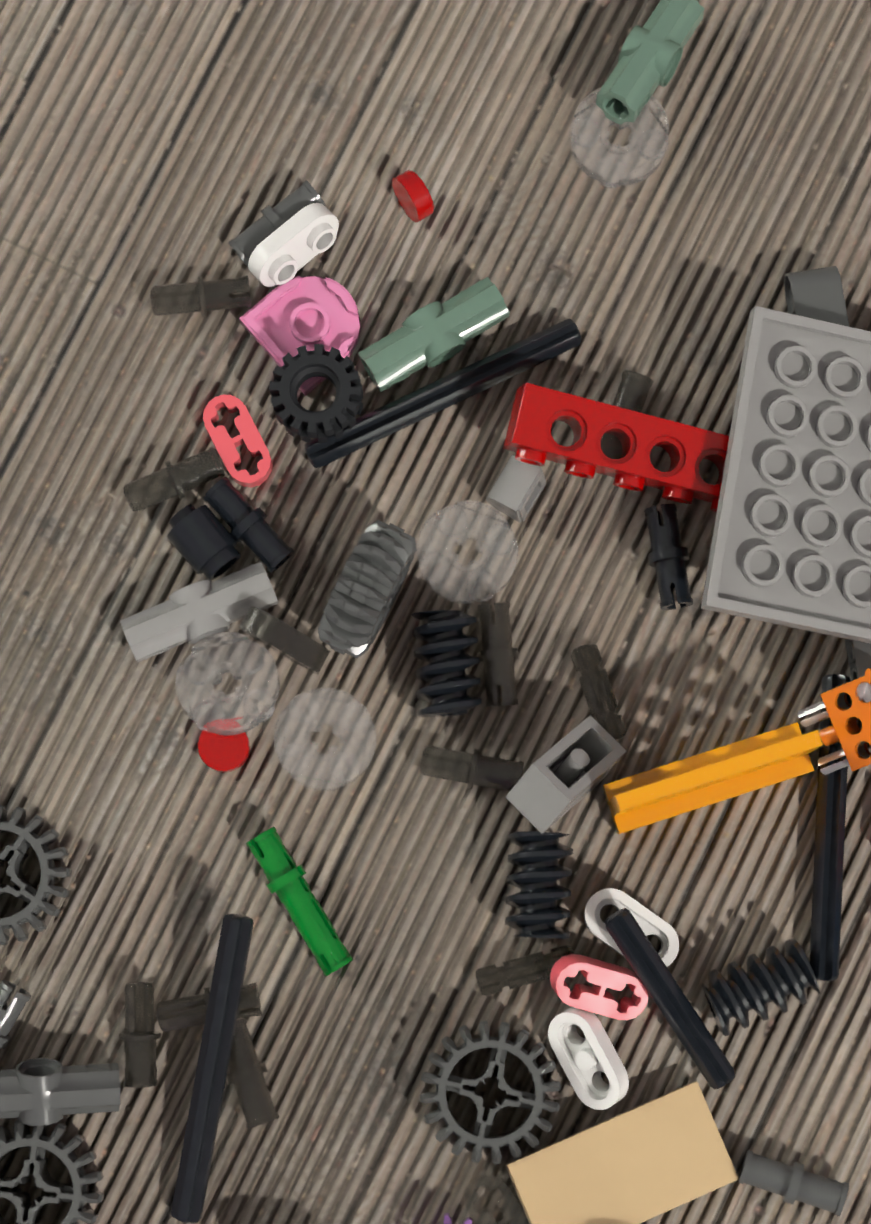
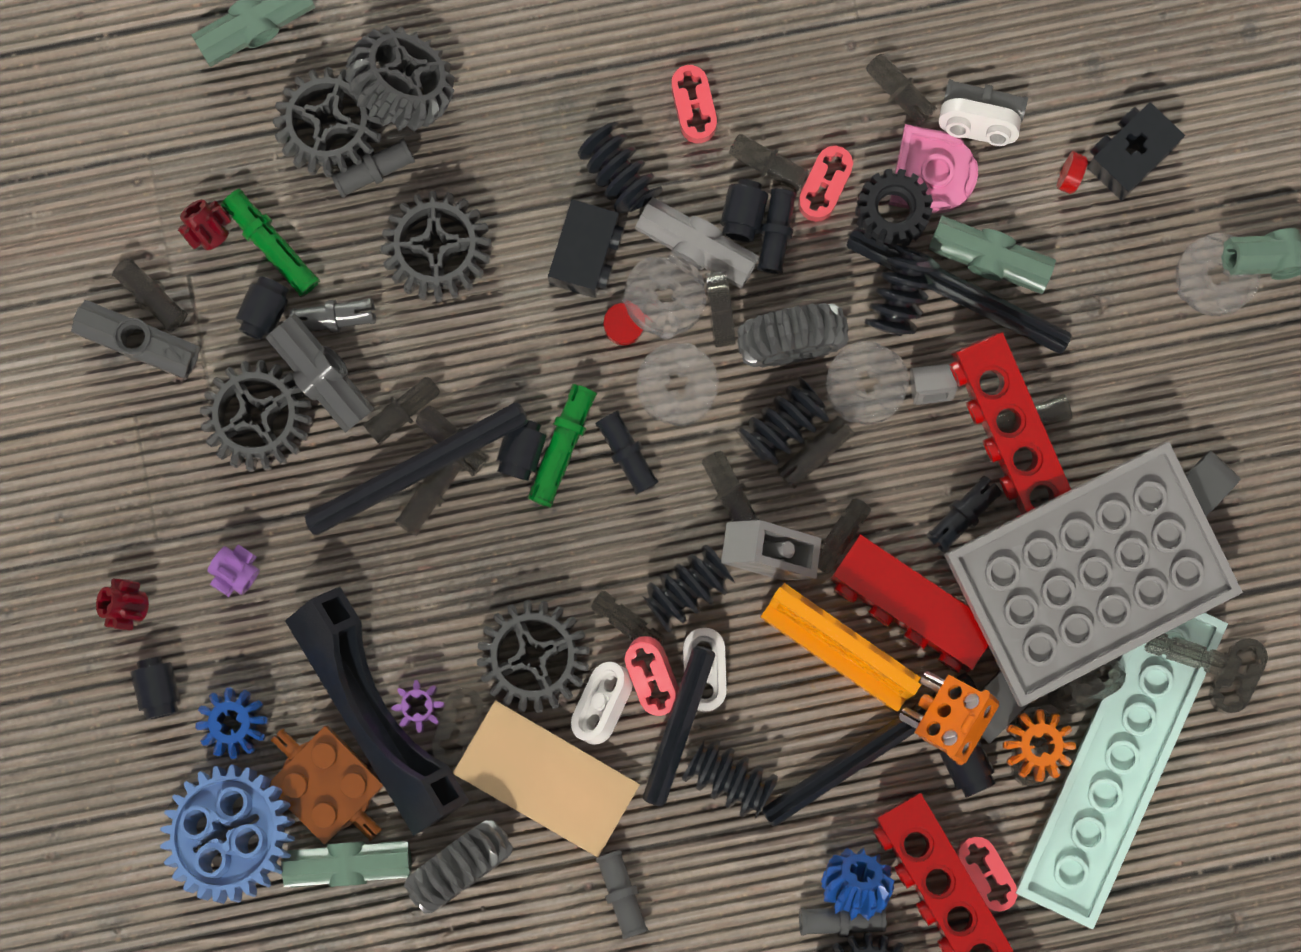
camera: 50 degrees right, 0 degrees up
(62, 498) = (703, 102): none -> coral beam
(65, 634) = (616, 170): none -> black piece
(119, 727) = (585, 248): none -> black brick
(275, 947) = (521, 451): none -> black brick
(356, 841) = (627, 452): none -> black pin
(407, 447) = (903, 292): none -> black piece
(443, 91) = (1149, 131): none -> black brick
(717, 675) = (912, 603): none -> red brick

